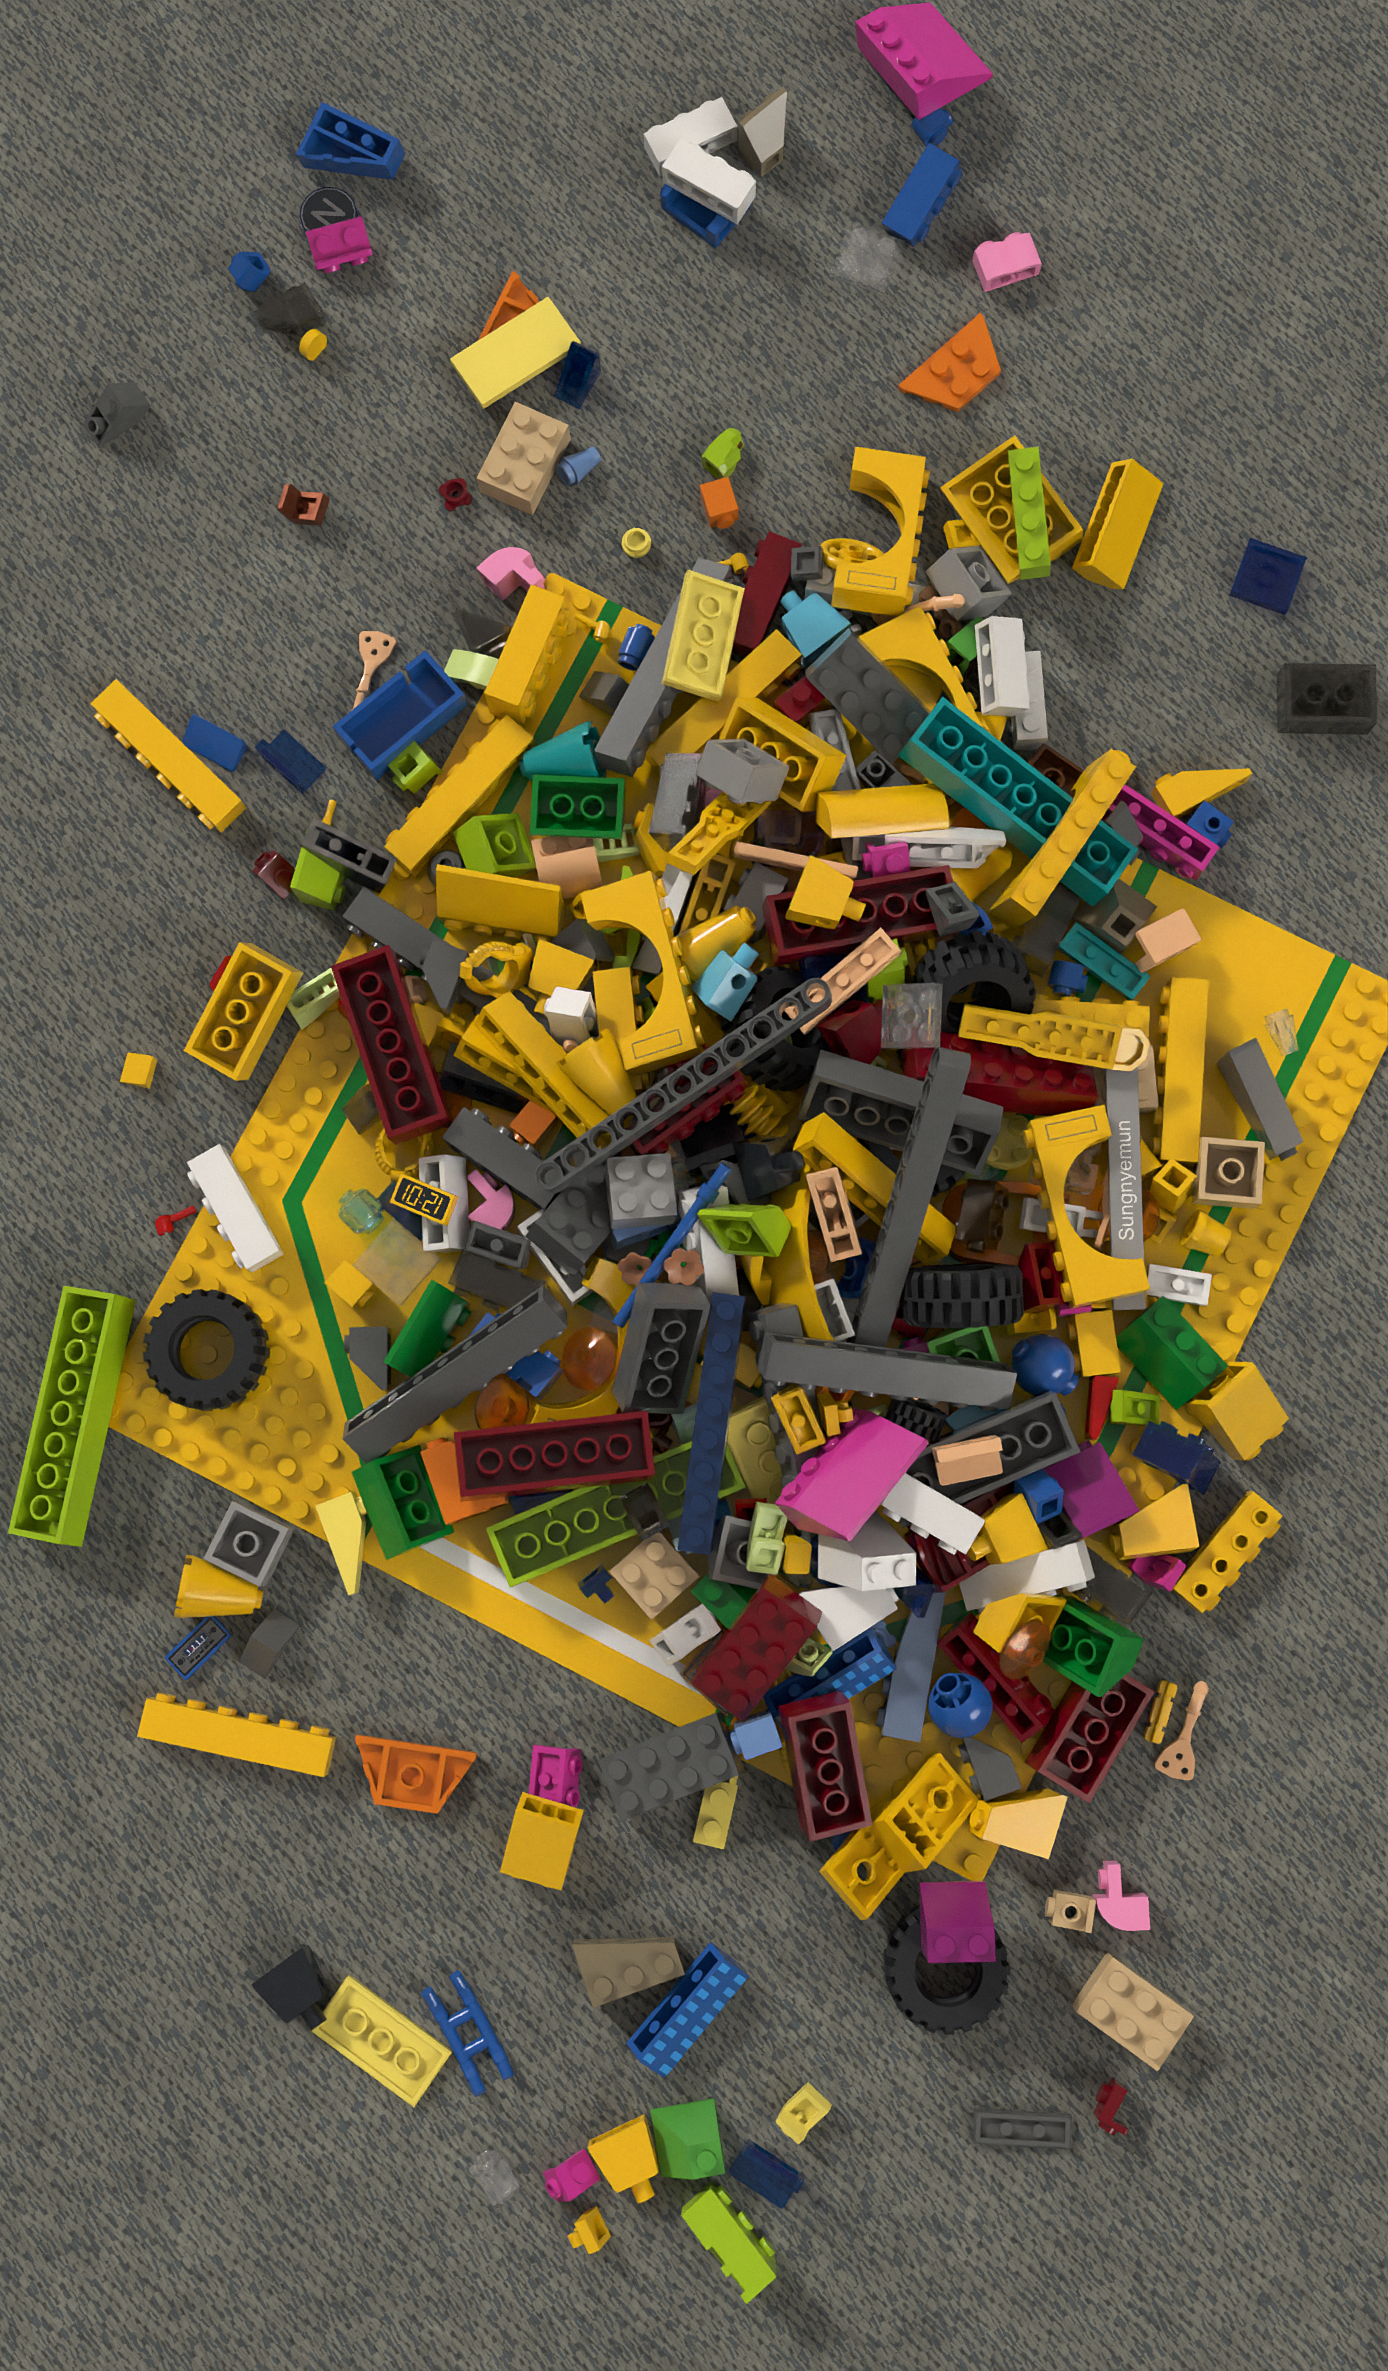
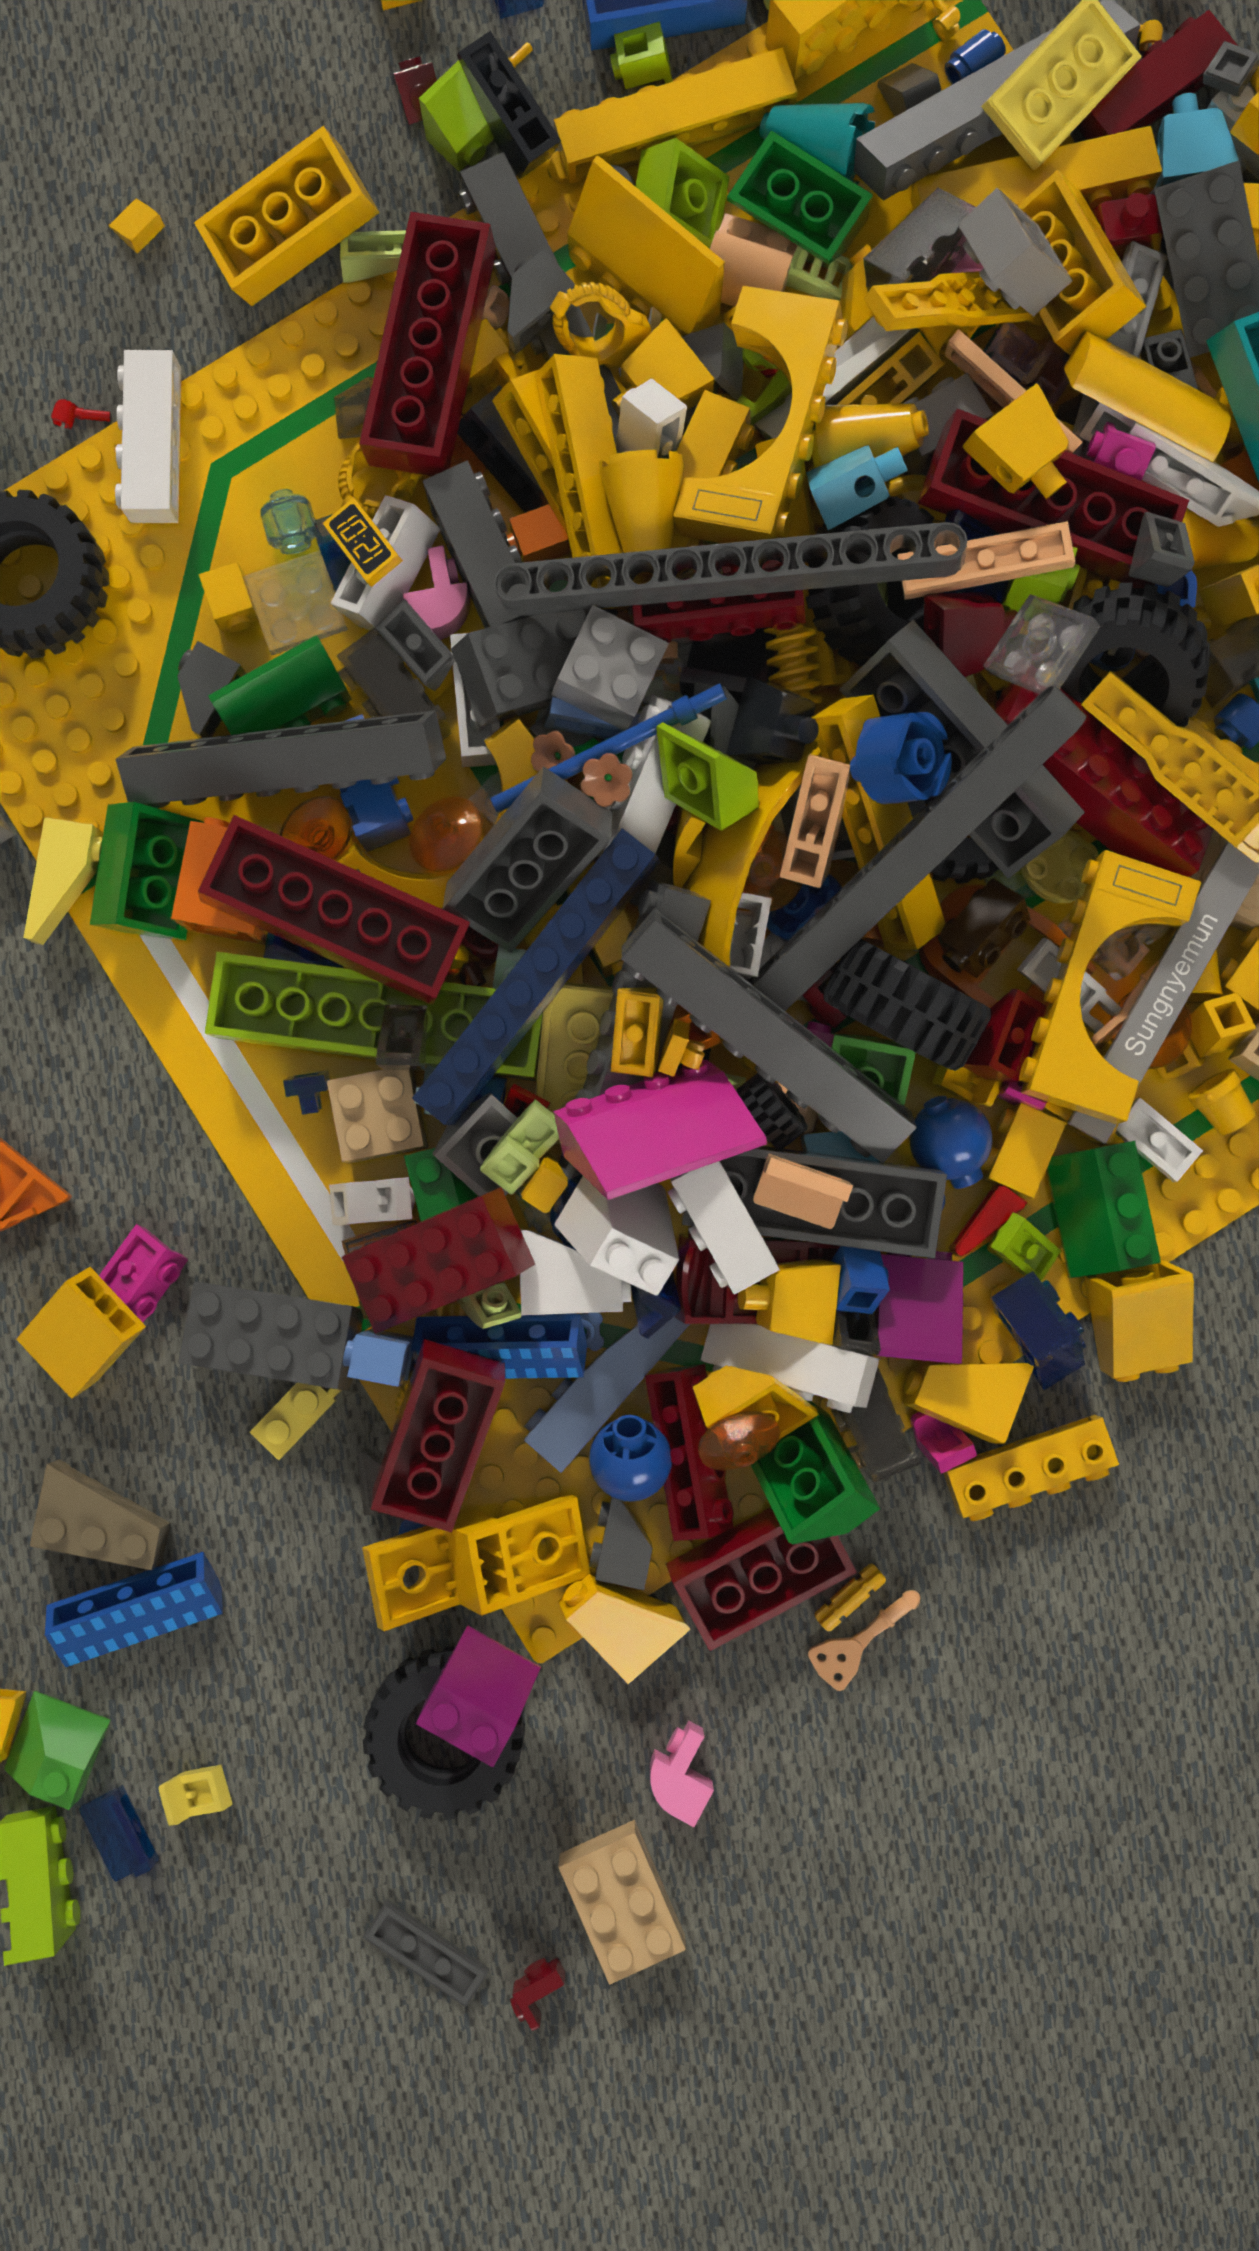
camera: 25 degrees right, 5 degrees up
(867, 1143) = (902, 758): none -> blue brick
(1084, 1906) = (614, 1737): tan brick -> none

